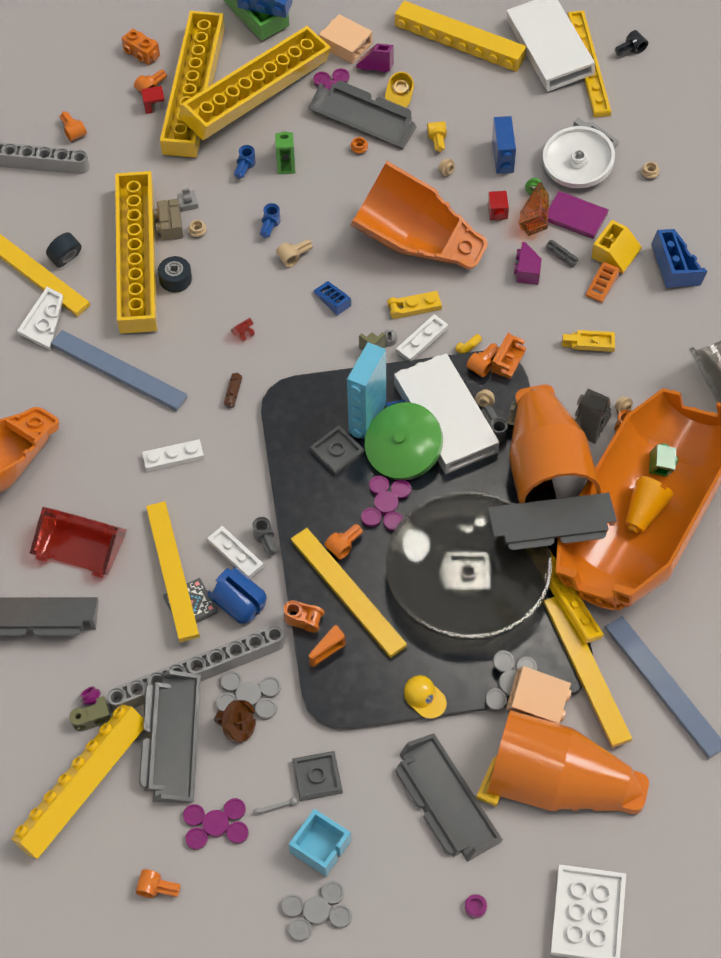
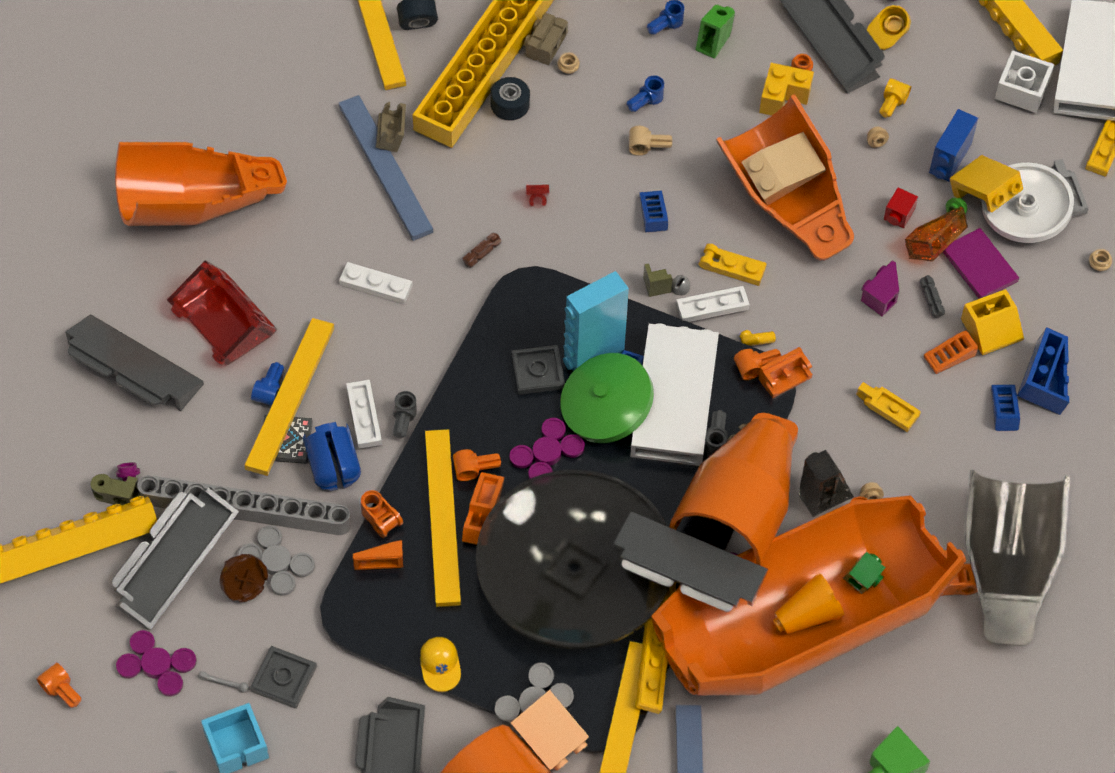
camera: 30 degrees right, 0 degrees up
(43, 319) = (348, 73): white wing -> none
(105, 339) = (390, 127): none -> dark tan hinge
(151, 573) = (268, 387): none -> blue axle
(187, 200) = (581, 28): light grey tile -> none
(359, 165) = (781, 84): none -> yellow brick
(372, 568) = (483, 500): none -> orange slope
(407, 217) = (783, 167): none -> tan slope
(485, 398) = (727, 402): tan plate -> none
(516, 79) = (1024, 81): none -> white brick
(544, 155) = (988, 181): none -> yellow panel
(670, 308) = (1005, 415): none -> blue slope

